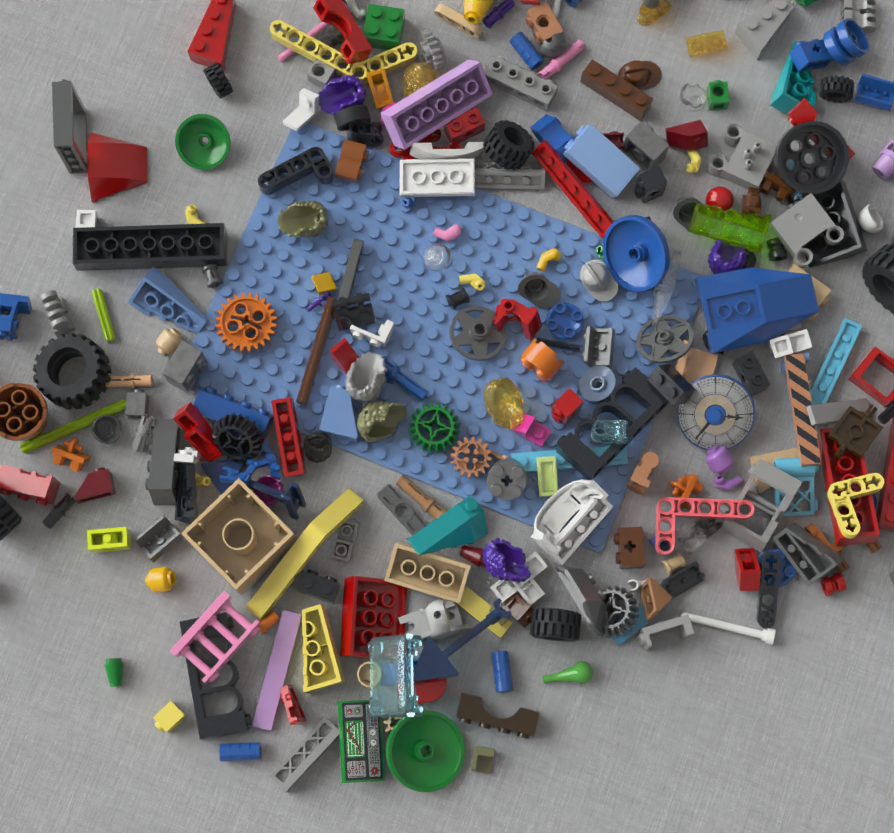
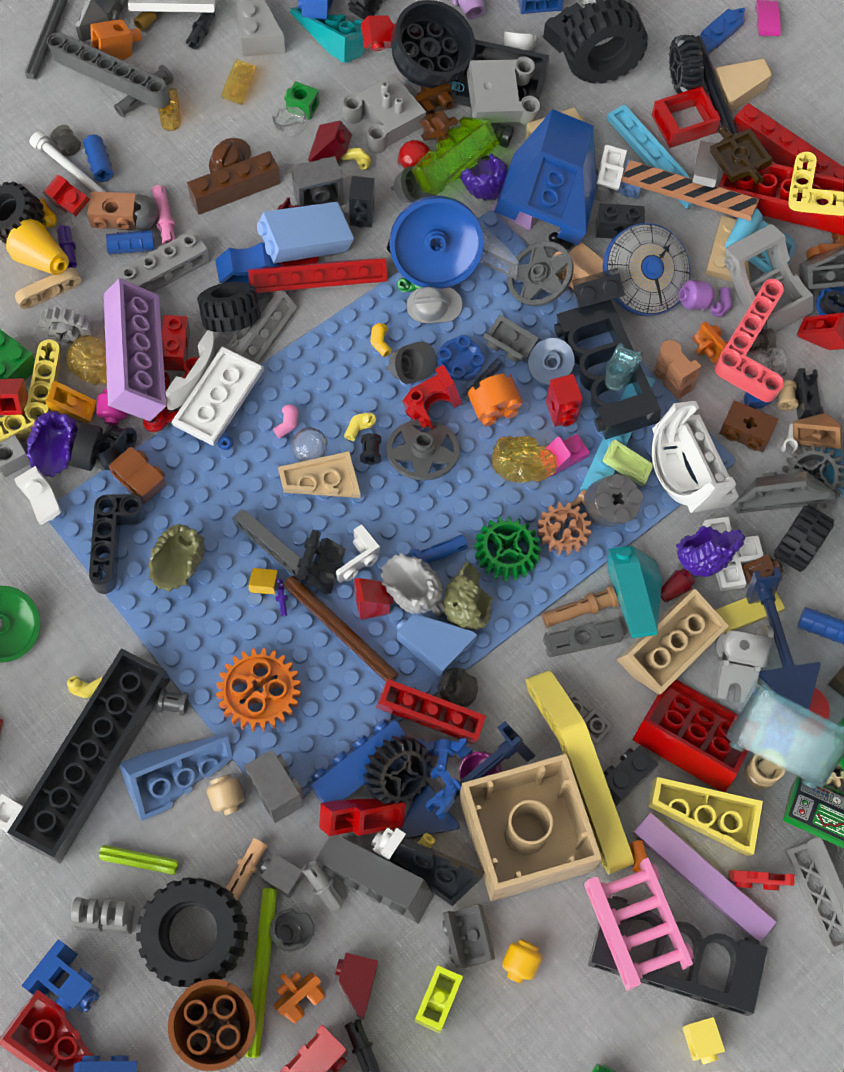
camera: 65 degrees left, 10 degrees down
(240, 751) = (787, 973): blue axle -> none
(419, 278) = (321, 476): none -> tan wing

